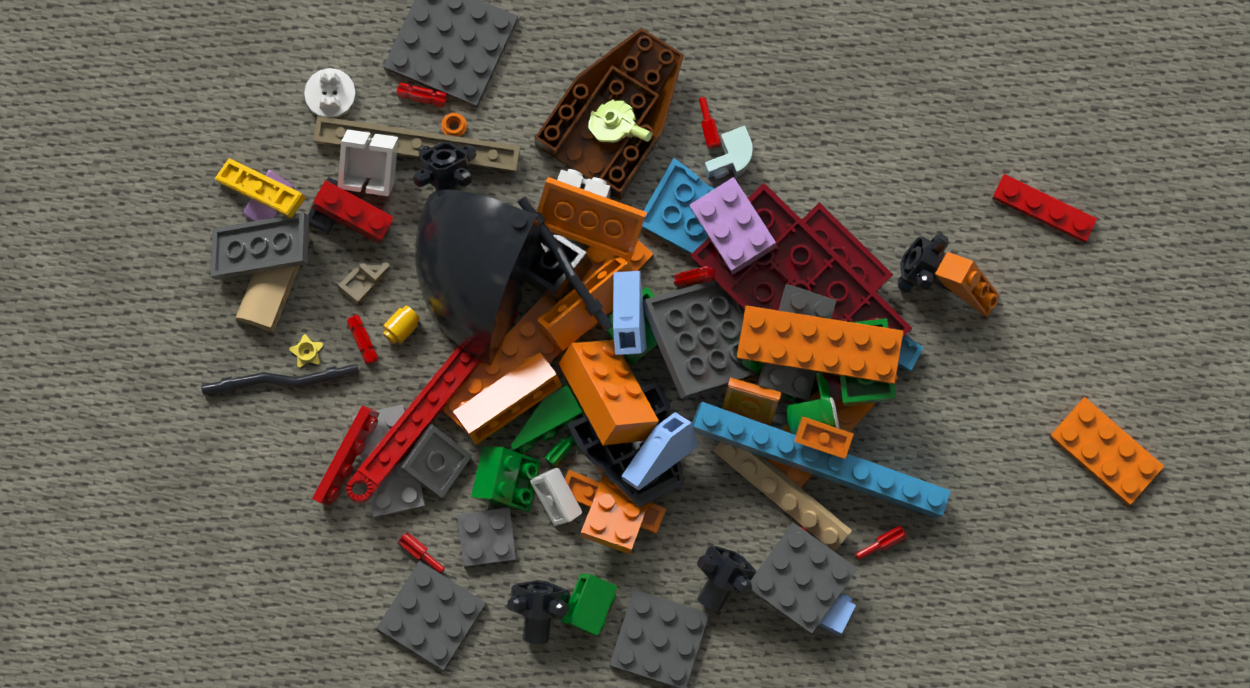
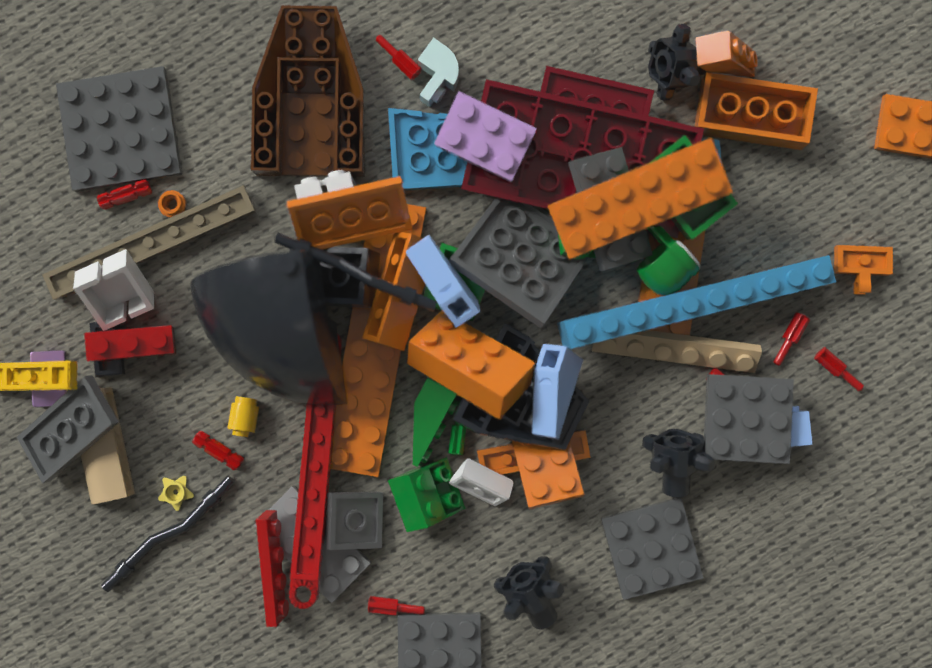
camera: 30 degrees left, 10 degrees up
(330, 81) = (47, 256): white plate -> none
(361, 281) = (182, 397): dark tan slope -> none
(445, 166) = (187, 250): black piece -> none
(486, 537) = (443, 555): flat silver plate -> none
(507, 398) = (381, 426): brick -> none
(590, 604) = (573, 559): green brick -> none
(615, 122) = (315, 108): yellowish green piece -> none
(694, 276) = (477, 205): red axle -> none
(751, 401) = (601, 288): orange tile -> none
(823, 437) = (694, 283): orange plate -> none
(904, 590) = (836, 367): none -> red axle
(965, 342) = (756, 111): none -> orange brick
(980, 519) = (863, 263): none -> orange plate

